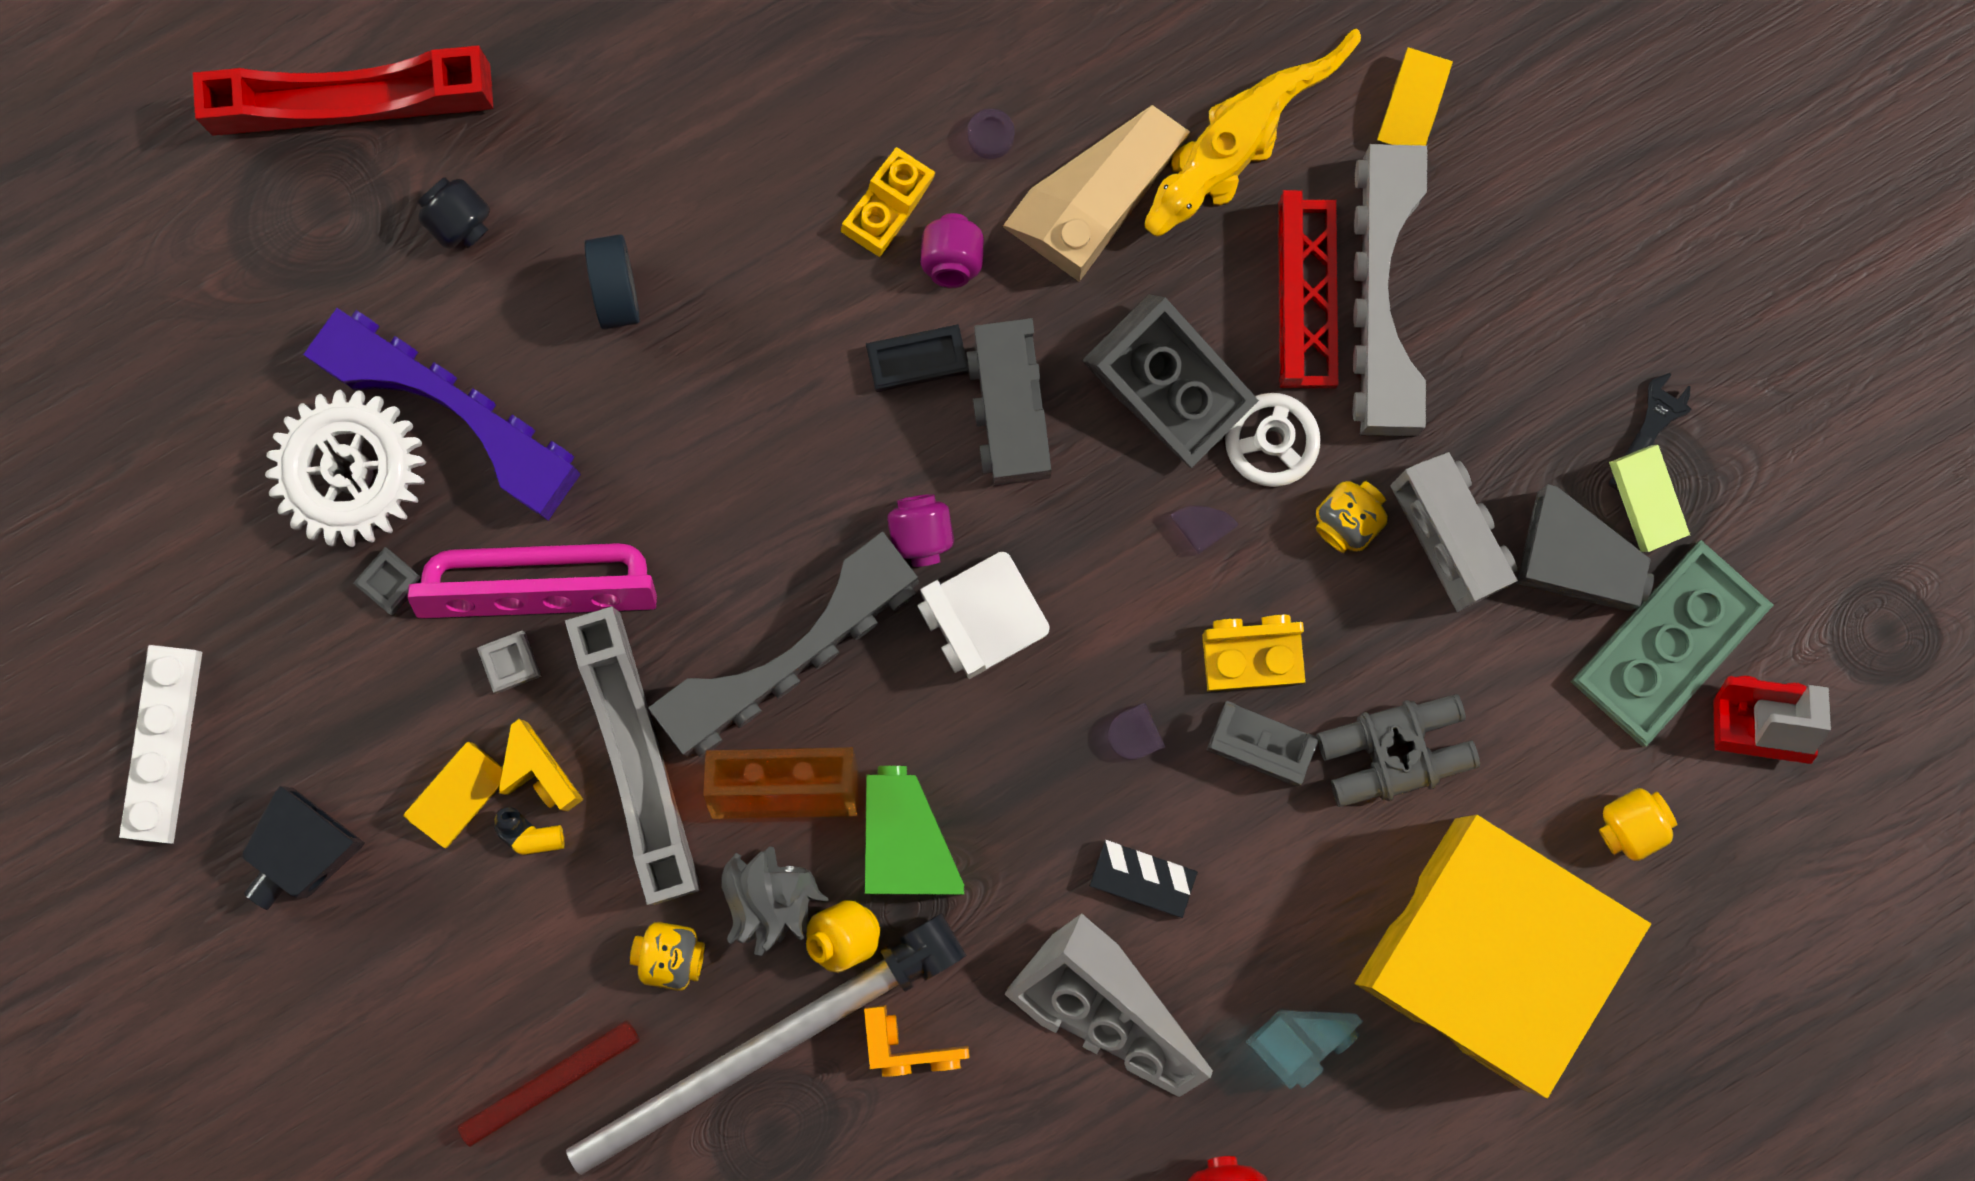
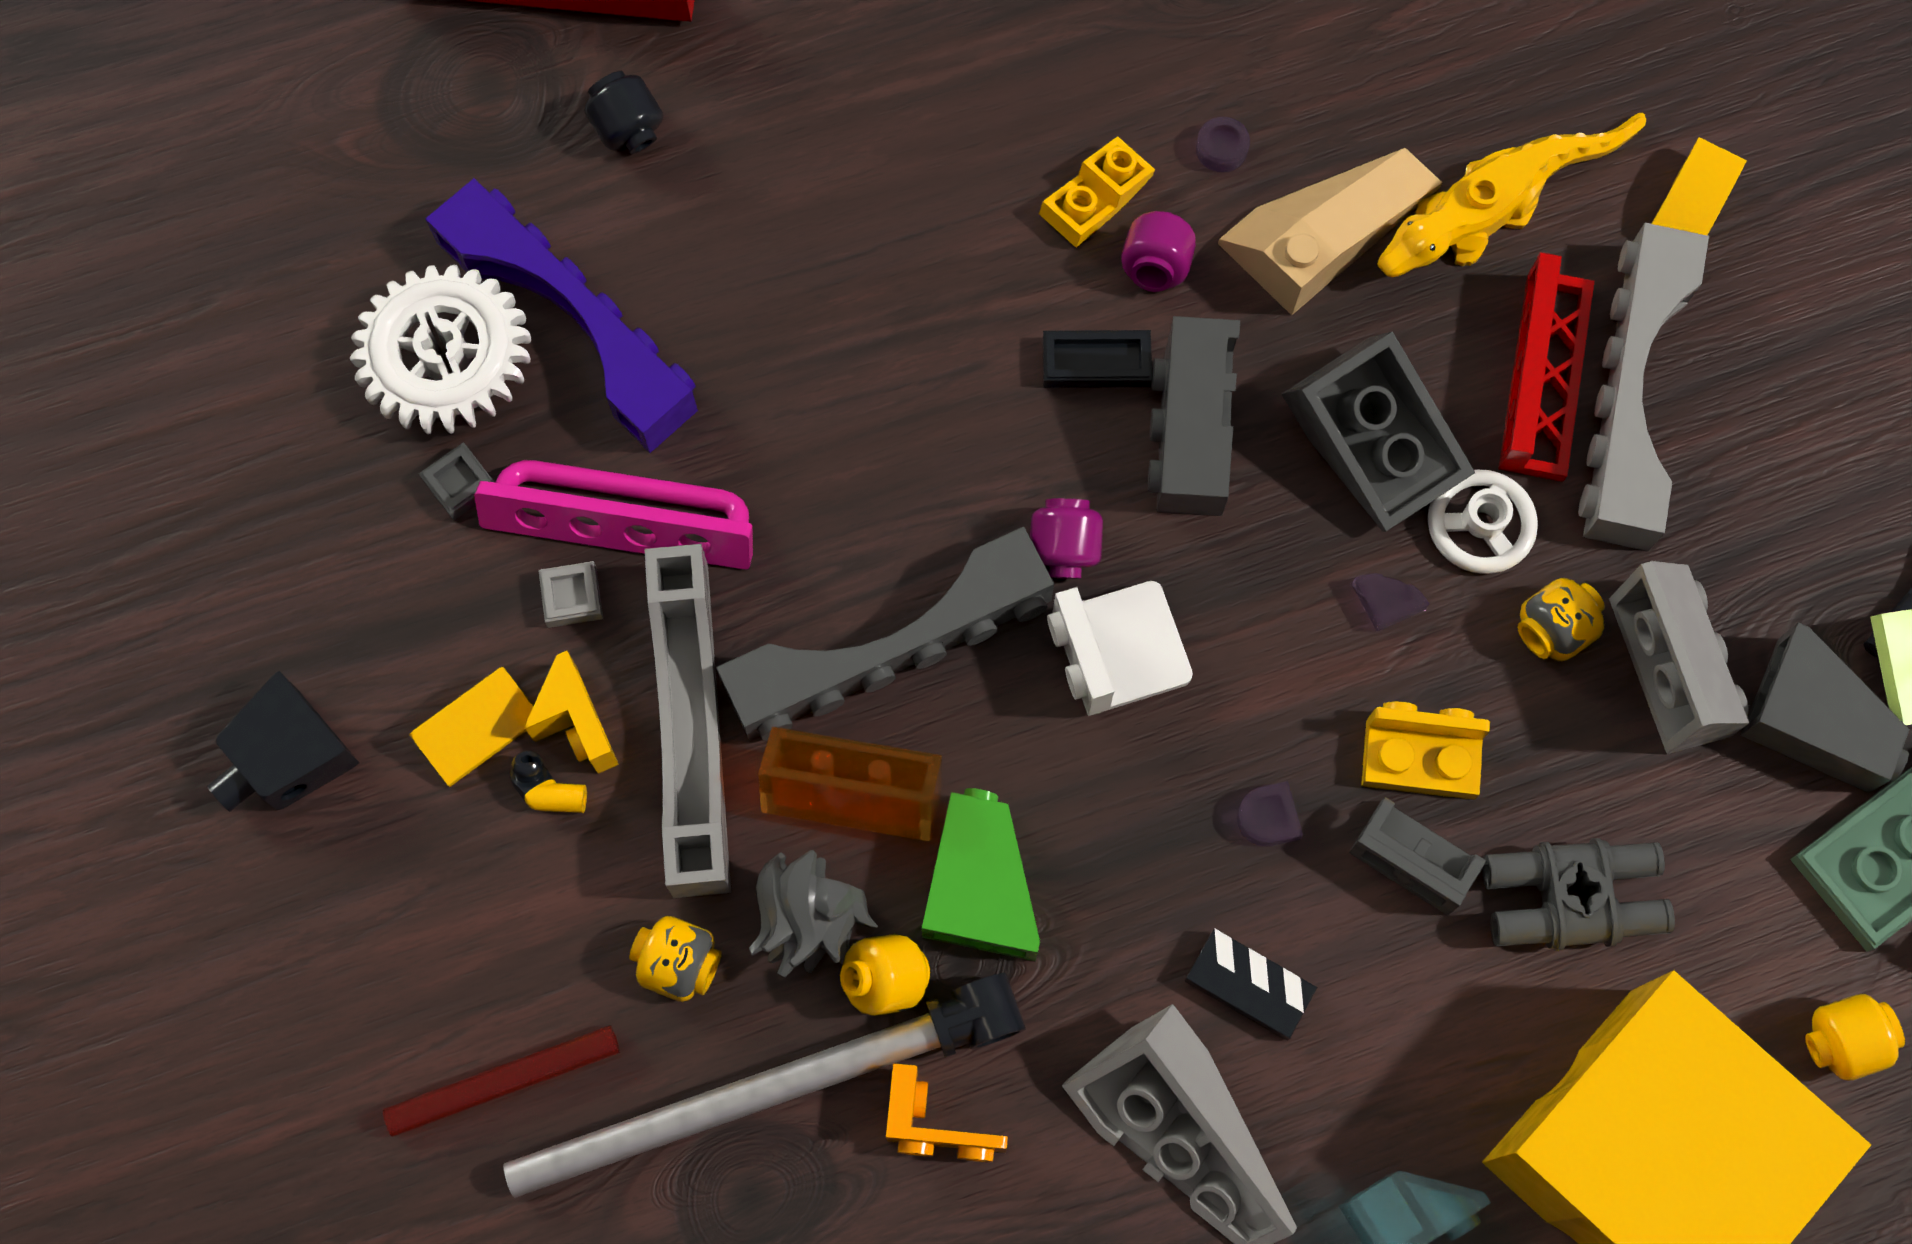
camera: 10 degrees right, 10 degrees down
(160, 744) = (159, 607): white plate -> none
(611, 281) = (778, 209): black wheel -> none

